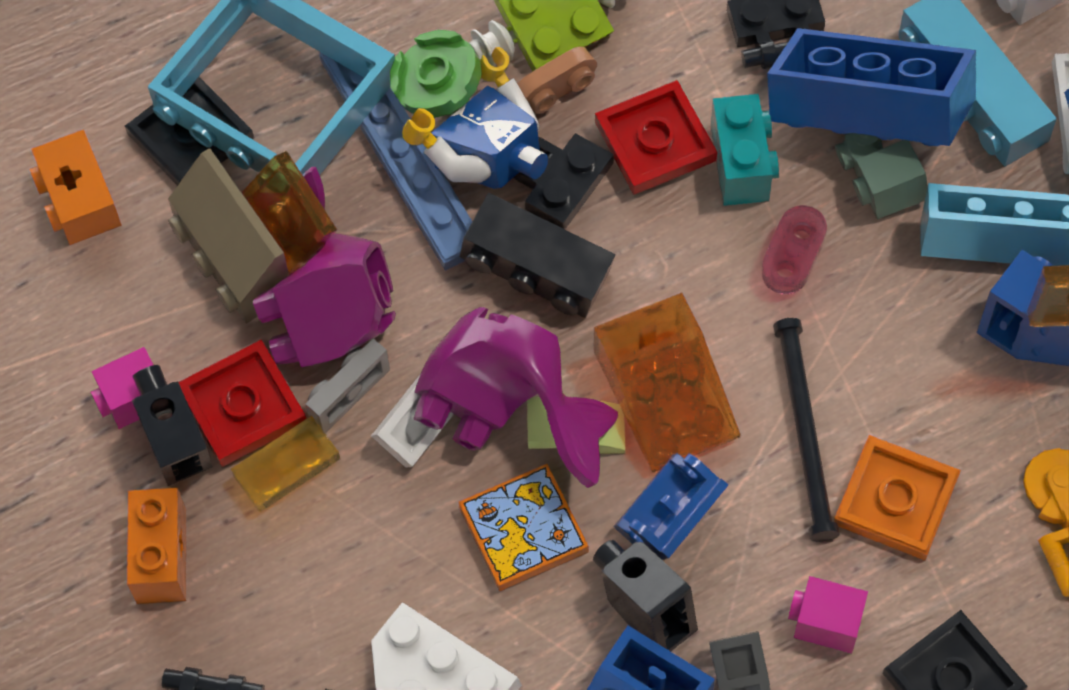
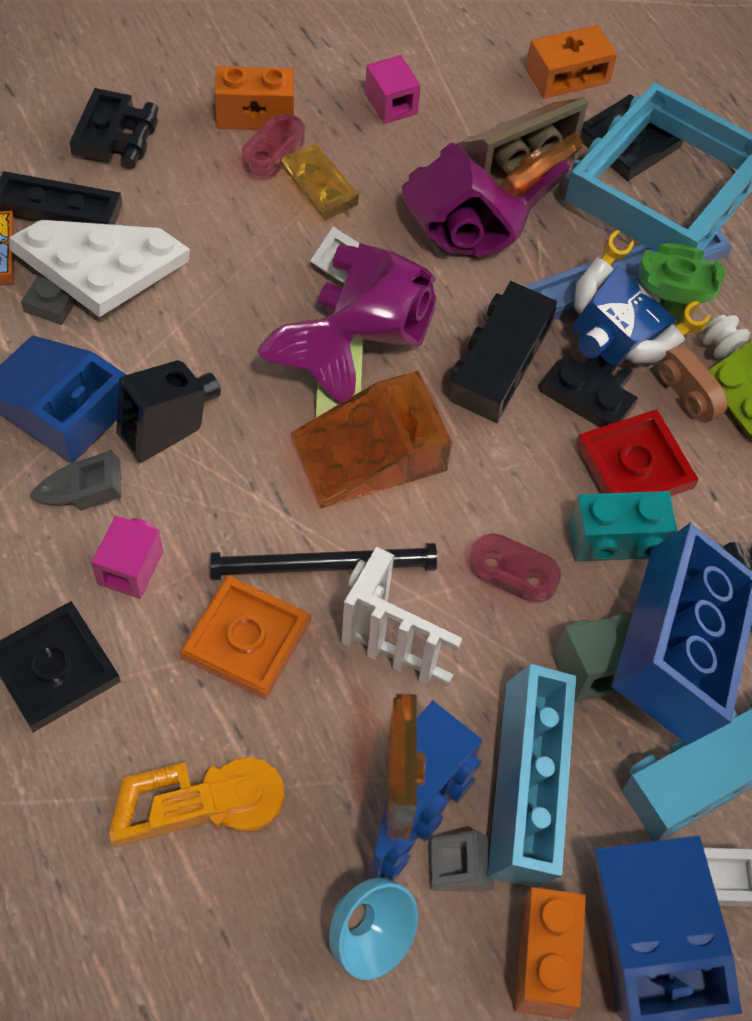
camera: 85 degrees right, 5 degrees down
(174, 440) = (345, 95): black torso -> none
(230, 524) = (275, 140): none -> clear pink plate
(241, 402) = (375, 155): red plate -> none
(358, 374) = (385, 220): light grey plate -> none
(523, 527) = (235, 333): tile -> none
(671, 505) = (249, 436): blue hinge -> none
(873, 372) = (367, 615): none -> white plate

